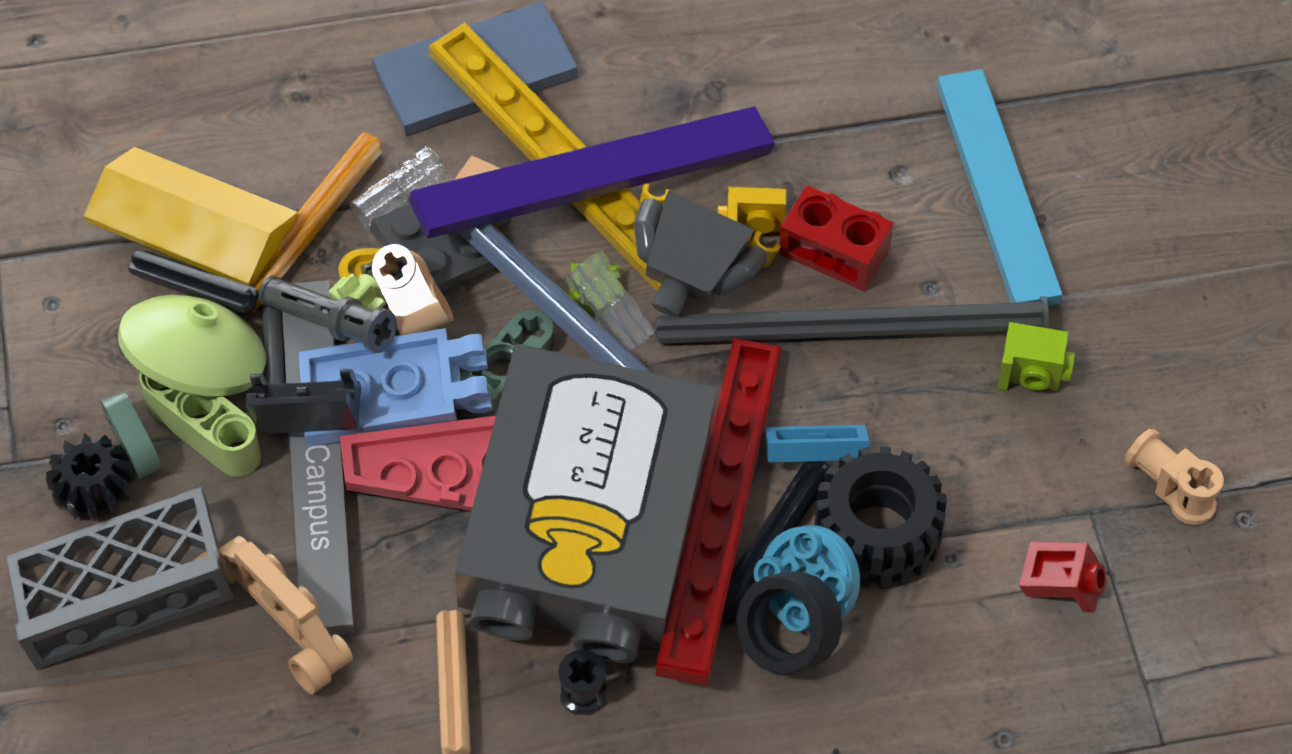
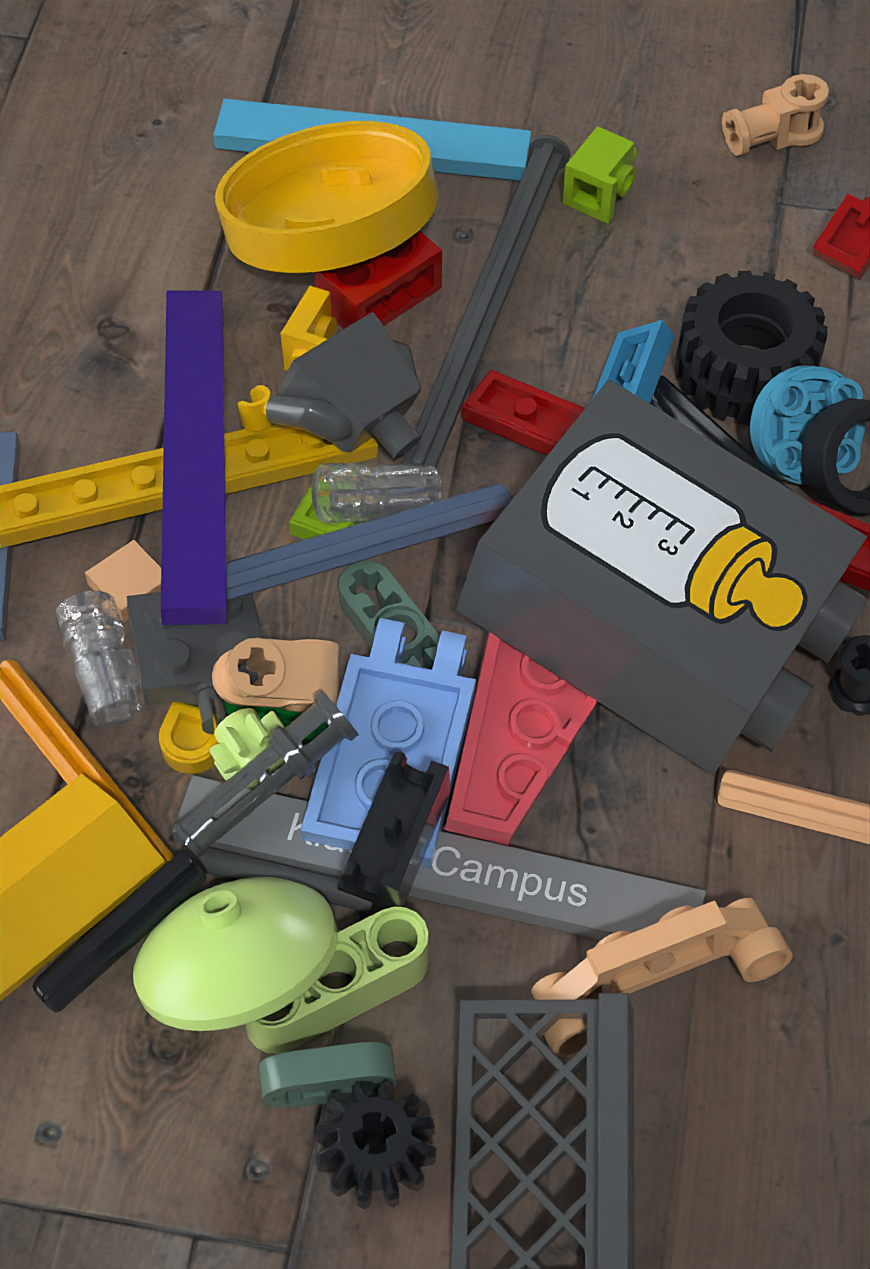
camera: 70 degrees left, 0 degrees up
(886, 168) = (327, 196): none -> yellow piece

